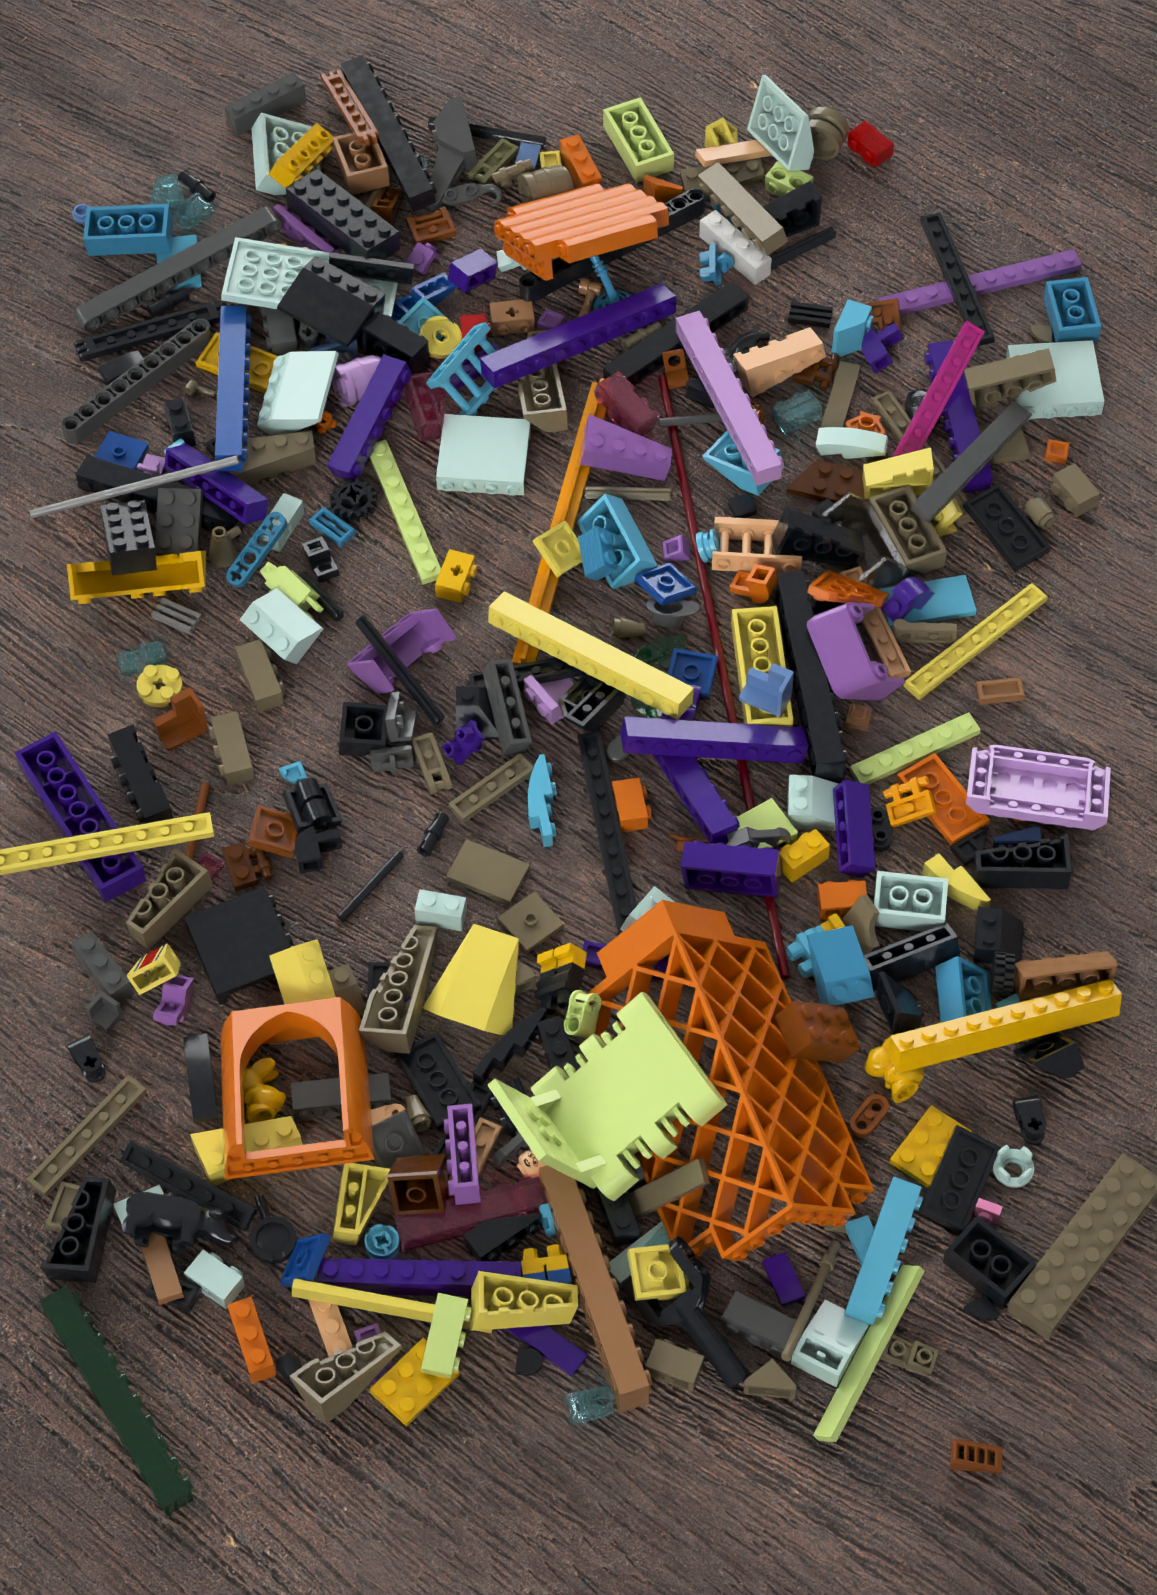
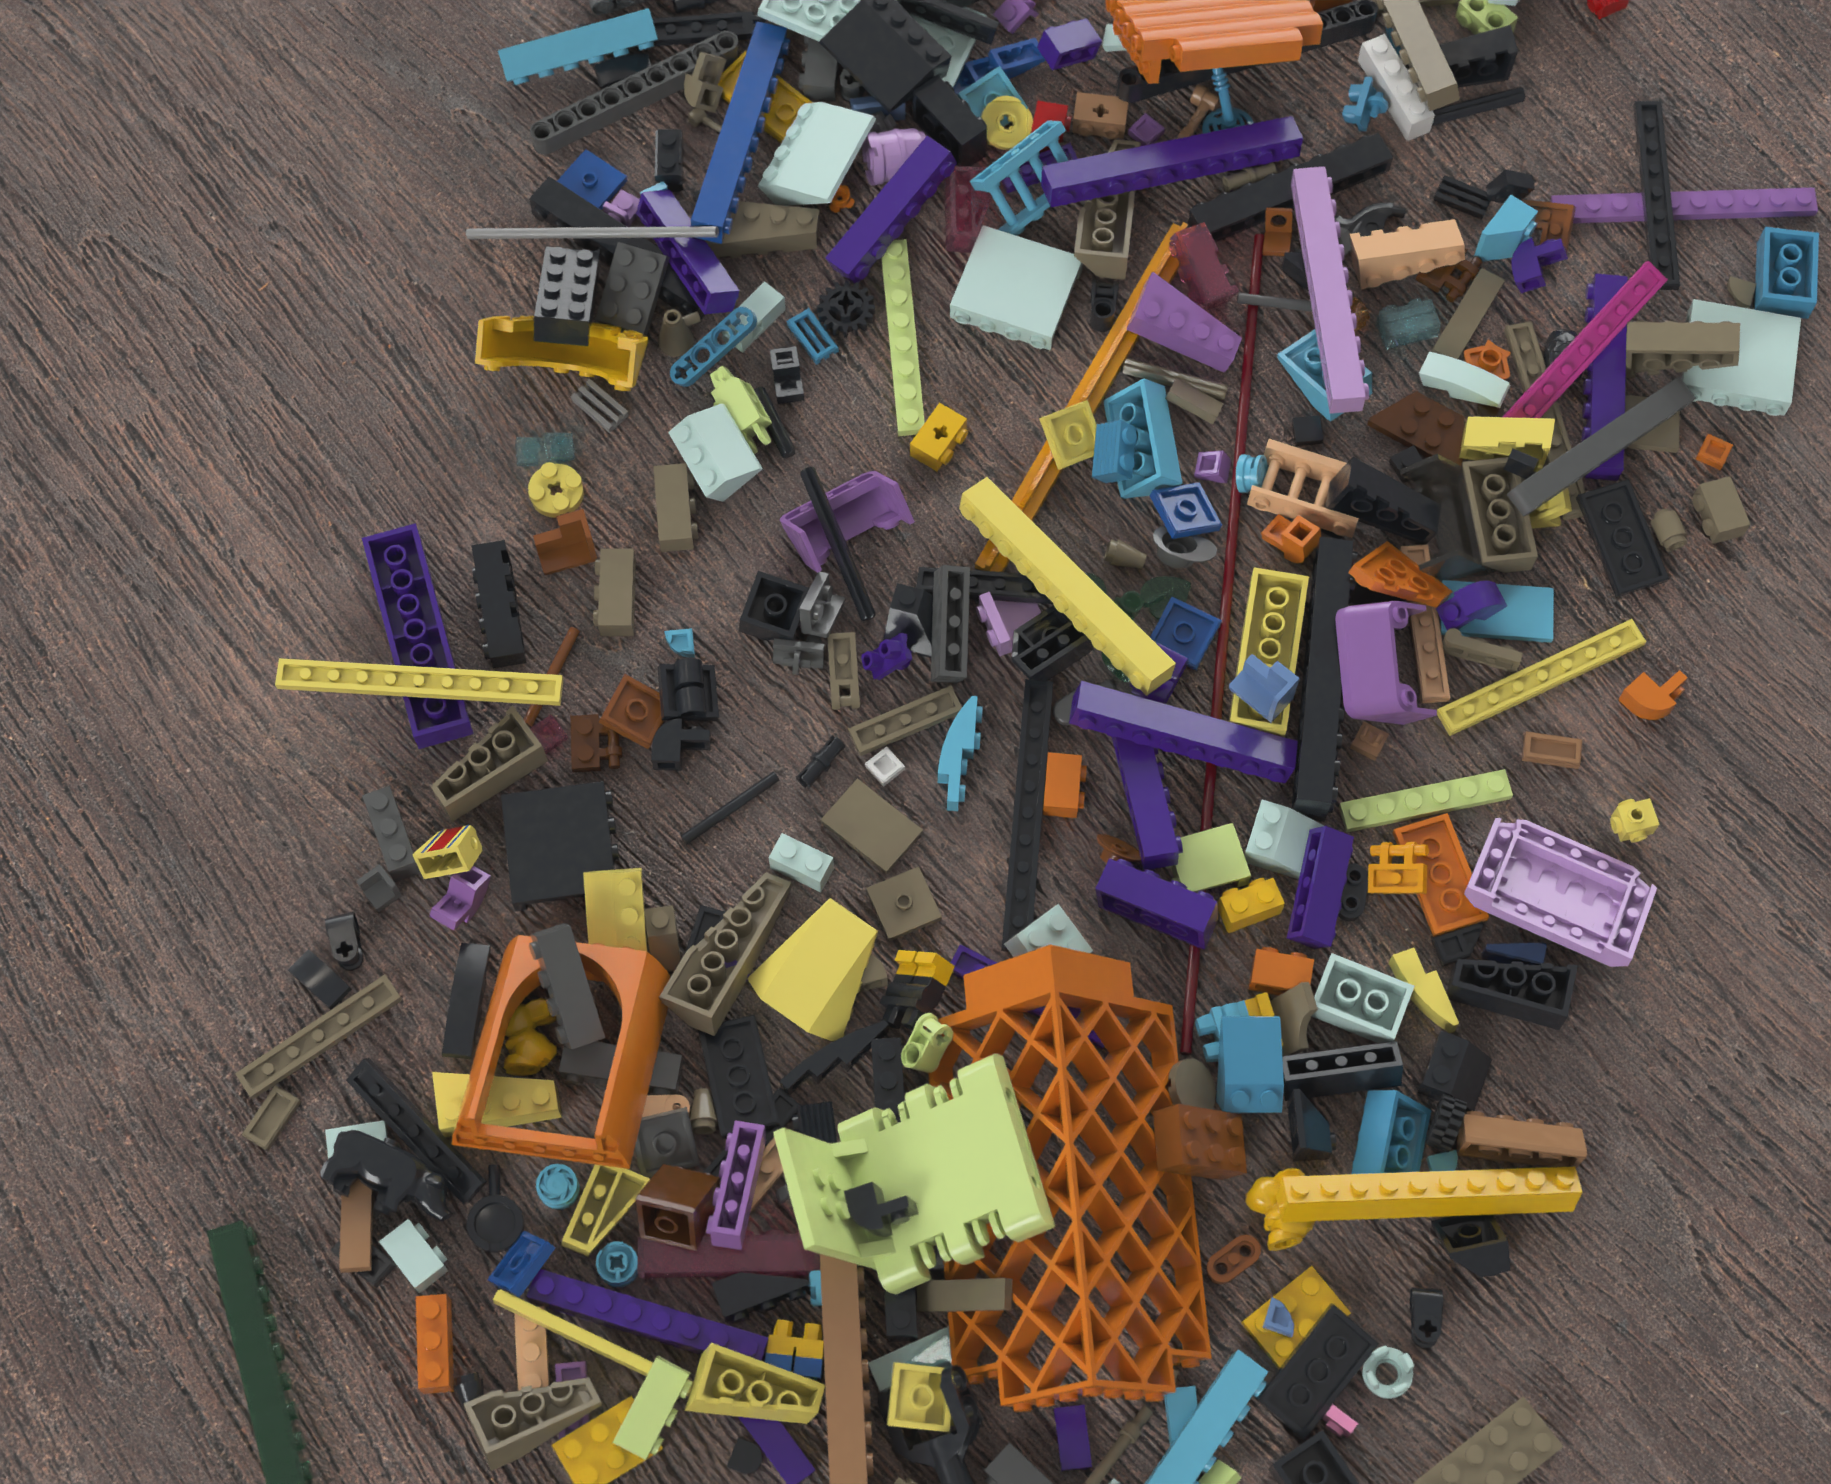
camera: 15 degrees right, 10 degrees up
(75, 1092) = (319, 979): none -> black slope
(82, 354) = (578, 45): none -> medium azure brick
(82, 1238) = (280, 1159): black wedge -> none
(190, 364) = (702, 86): none -> dark tan brick
(283, 1037) = (567, 986): none -> dark grey brick
(316, 1199) = (557, 1186): none -> medium azure wheel
(485, 826) = (885, 766): none -> white tile
(556, 452) = (1103, 301): none -> black piece
(582, 1137) = (871, 1211): none -> black brick
(648, 504) = (1194, 401): none -> dark tan tile
(753, 837) = (1190, 872): dark grey piece -> none
(796, 989) = (1192, 1084): none -> dark tan tile
(841, 294) = (1508, 184): none -> black piece
(913, 486) = (1520, 464): none -> black tile
(918, 1148) = (1278, 1319): none -> medium blue tile
(1063, 636) = (1649, 700): none -> orange brick
(1078, 723) = (1634, 820): none -> light yellow brick

